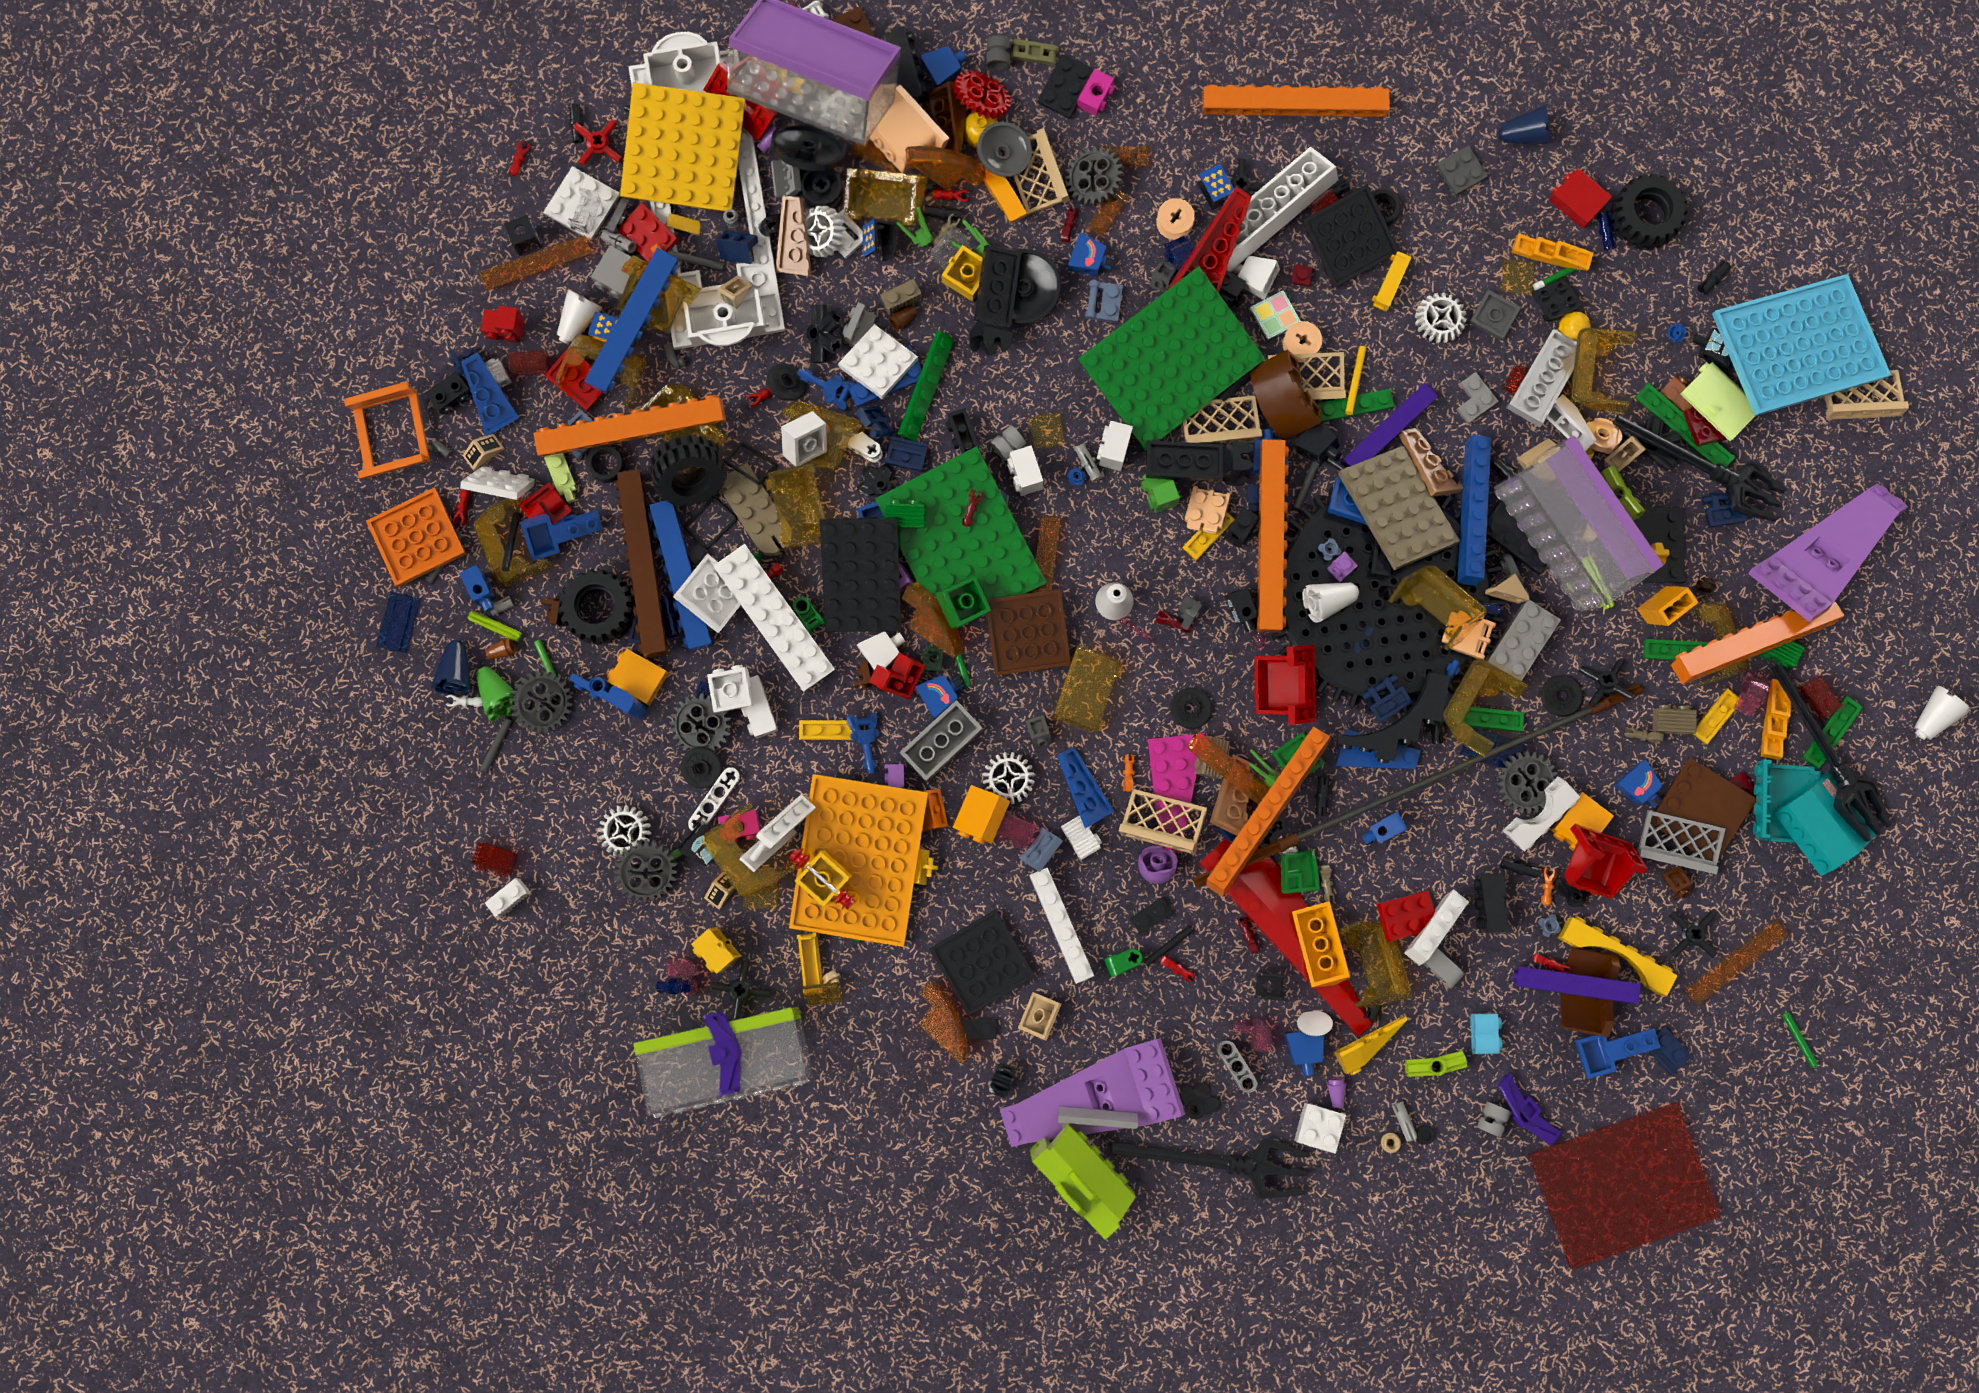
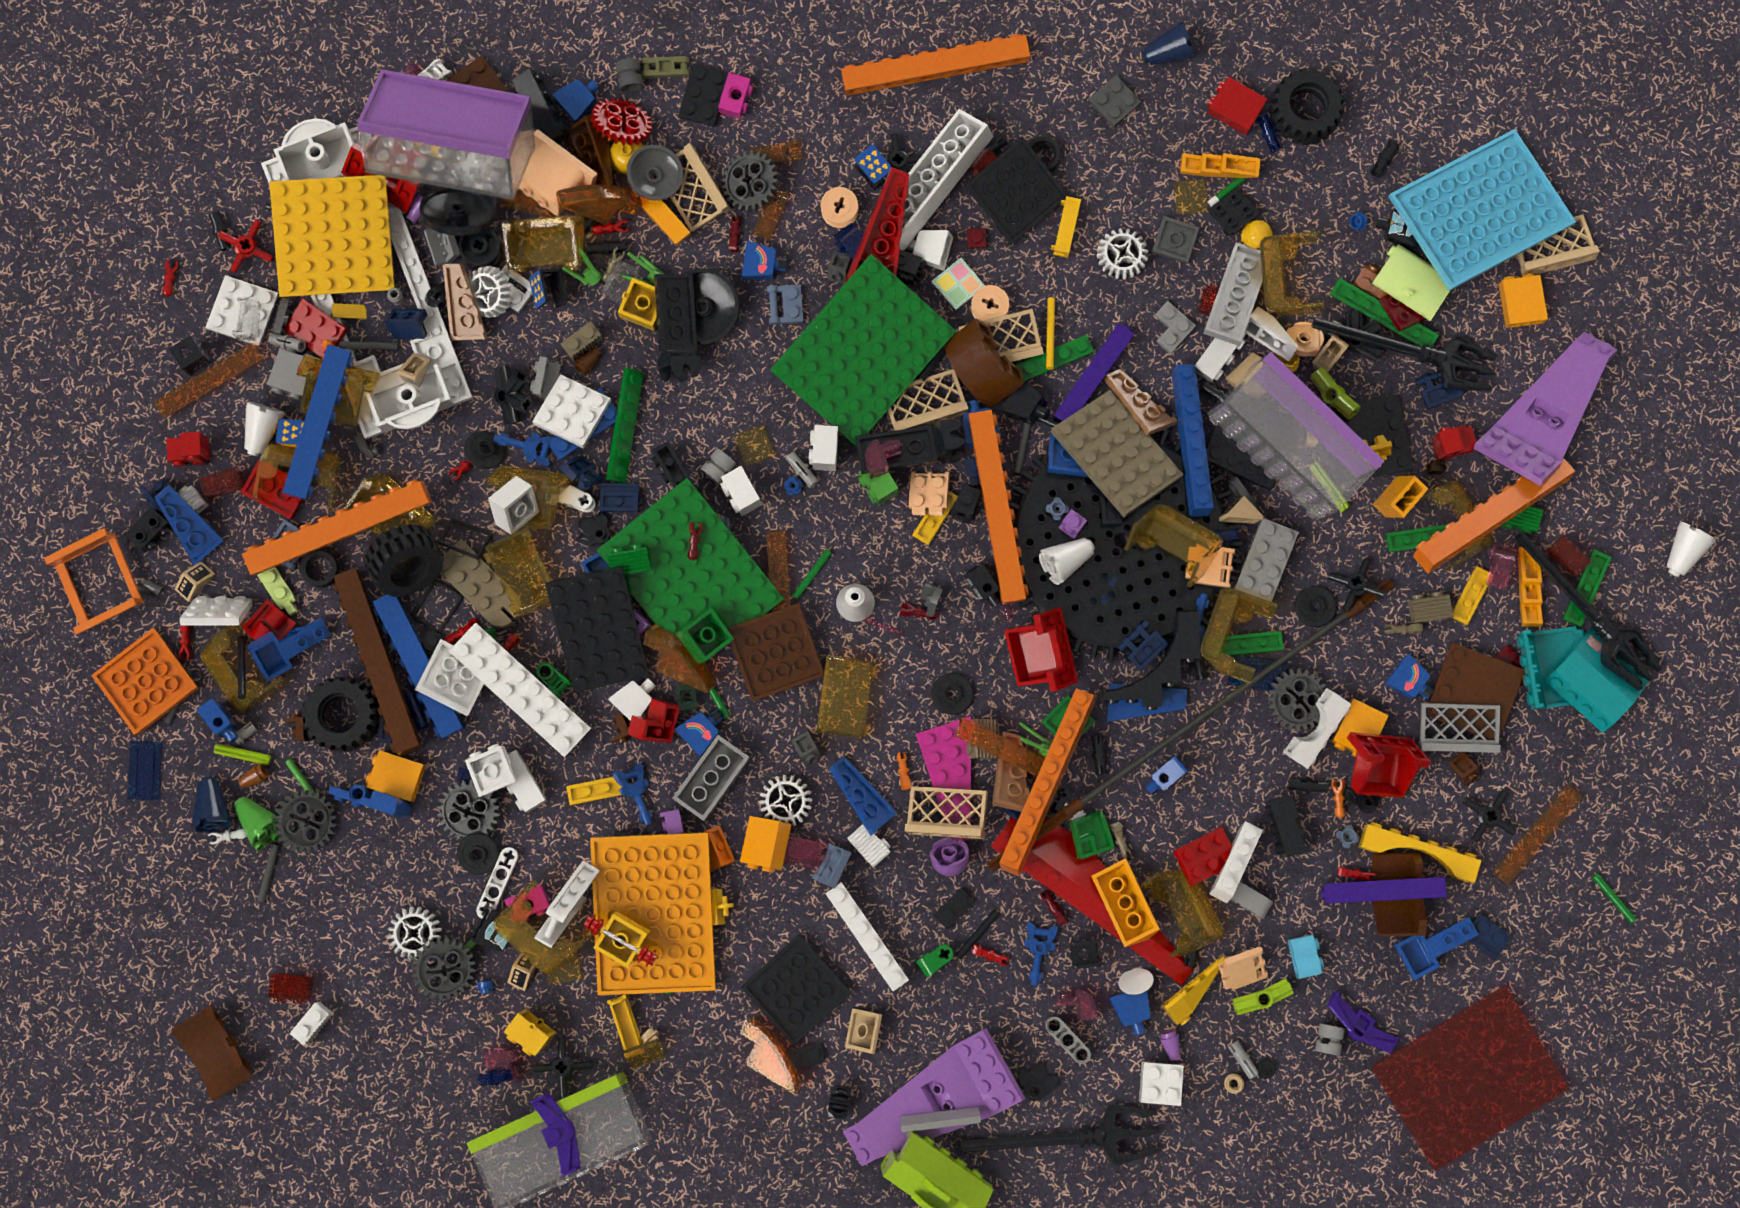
camera: 10 degrees left, 0 degrees up
(407, 905) = (213, 1052): none -> reddish brown panel
(682, 897) = (485, 986): none -> blue plate
(718, 556) = (452, 638): none -> red piece
(1076, 566) = (811, 575): none -> green bar
(1165, 461) = (876, 456): none -> clear pink brick
(1226, 971) = (1039, 948): none -> blue piece
(1422, 1033) = (1243, 969): none -> light nougat plate
(1512, 435) = (1215, 357): none -> white brick
(1729, 564) = (1453, 442): none -> red brick
(1823, 441) = (1523, 300): none -> light orange brick

